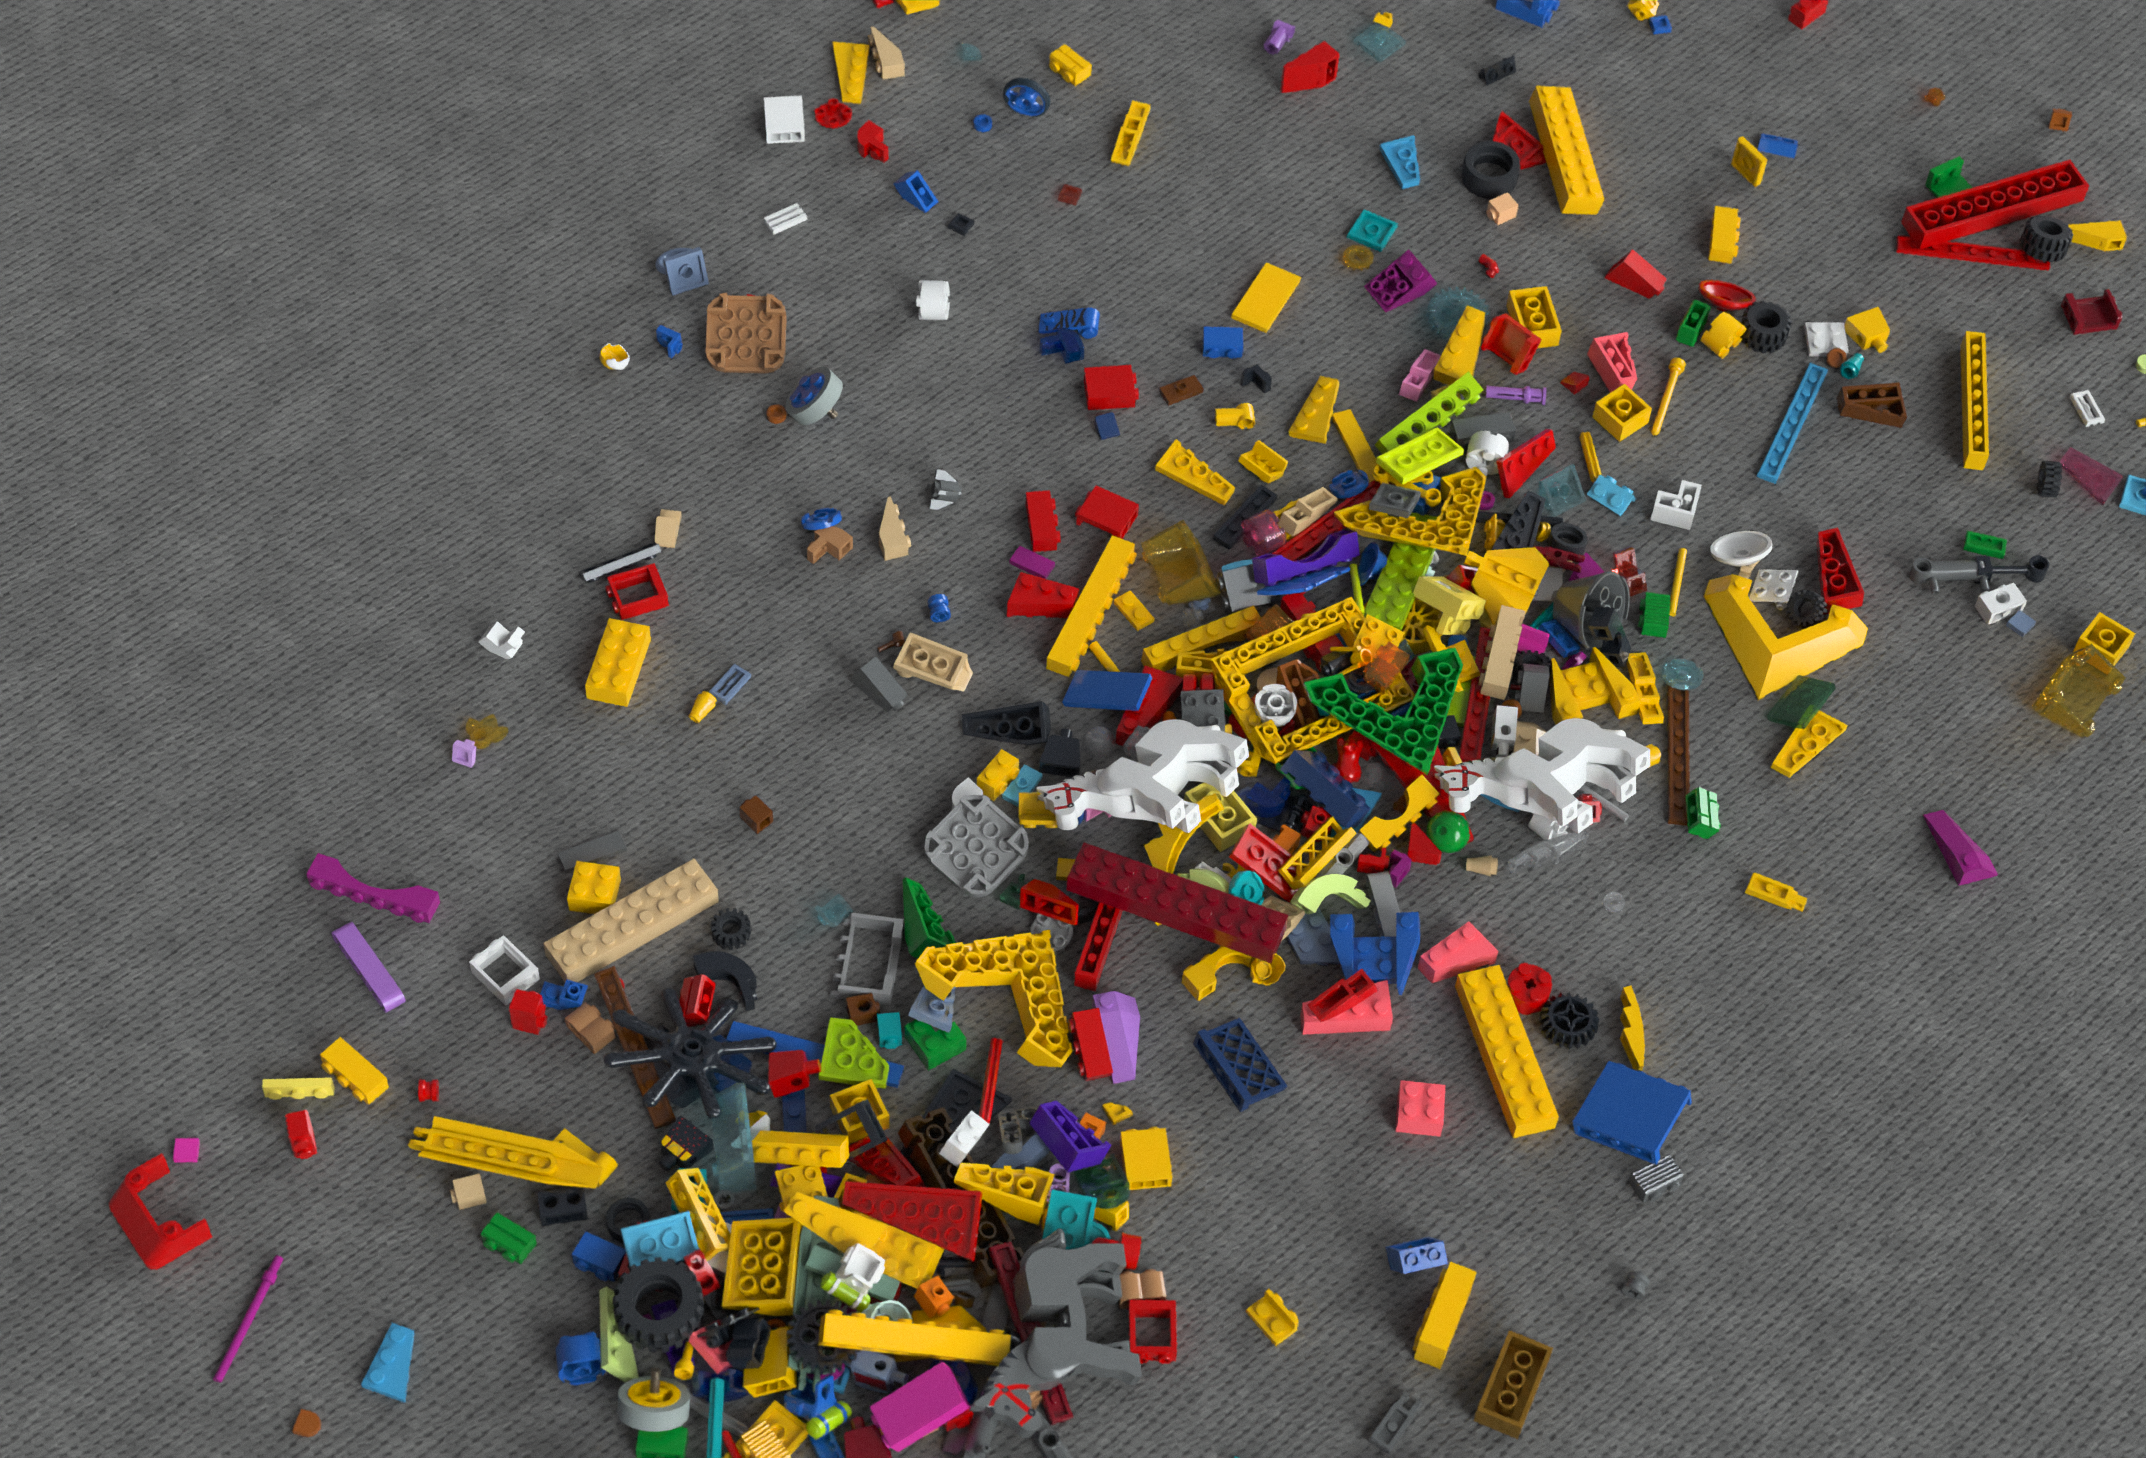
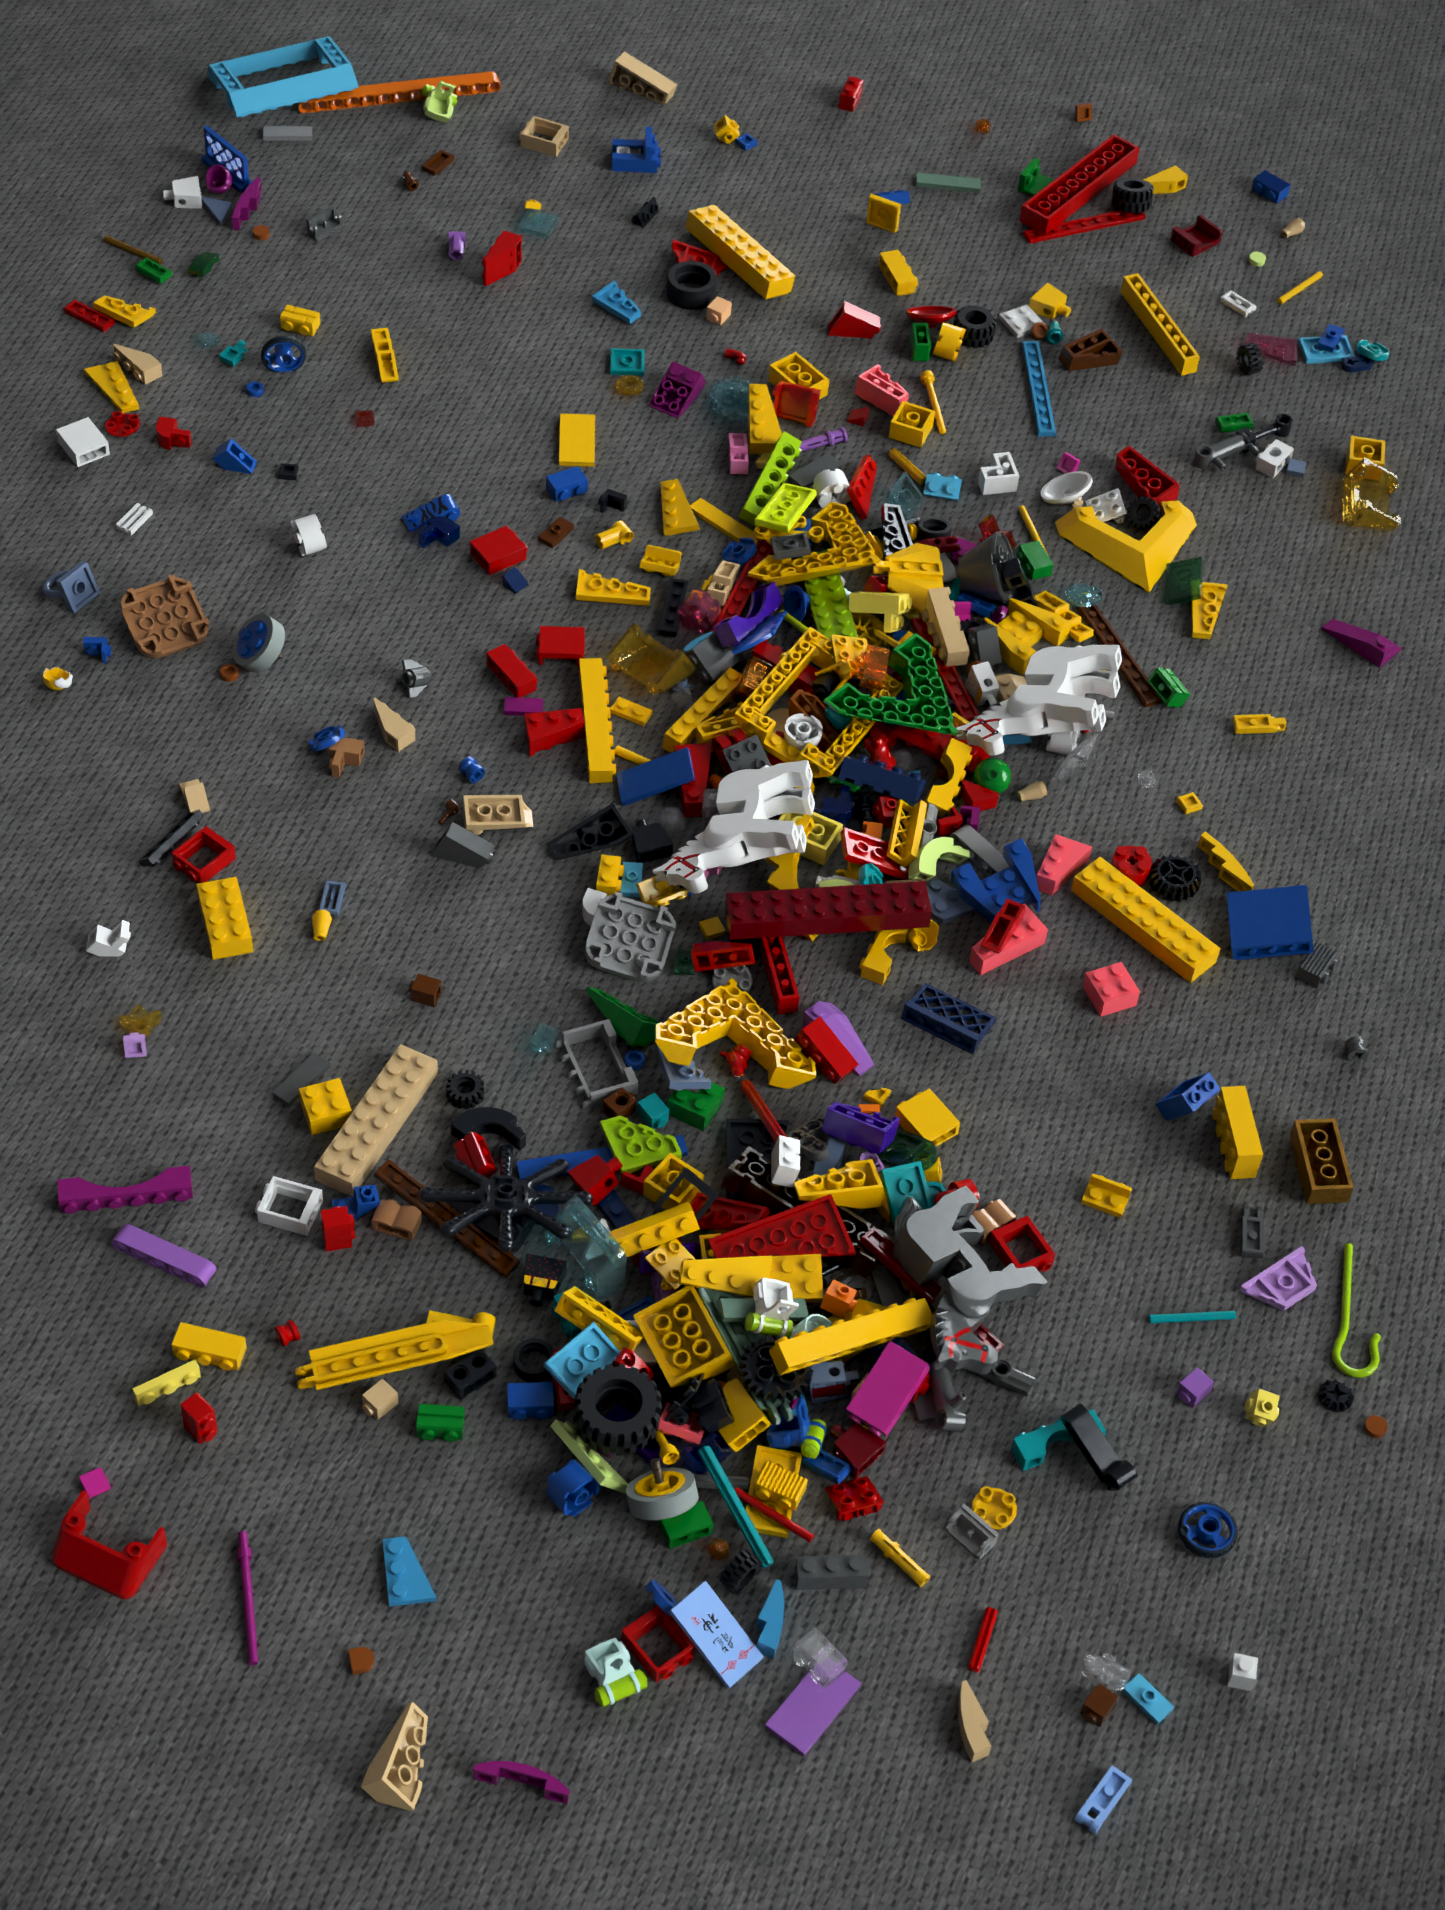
camera: 30 degrees left, 5 degrees down
(828, 1088) = (635, 1180): none -> red panel
(907, 970) = (634, 1059): none -> blue tile
(982, 78) = (233, 355): none -> teal plate
(1003, 1014) = (737, 1059): none -> red animal
(1642, 947) = (1189, 803): none -> yellow tile
(1765, 521) = (1068, 463): none -> dark pink tile
(1852, 149) = (948, 182): none -> sand green tile

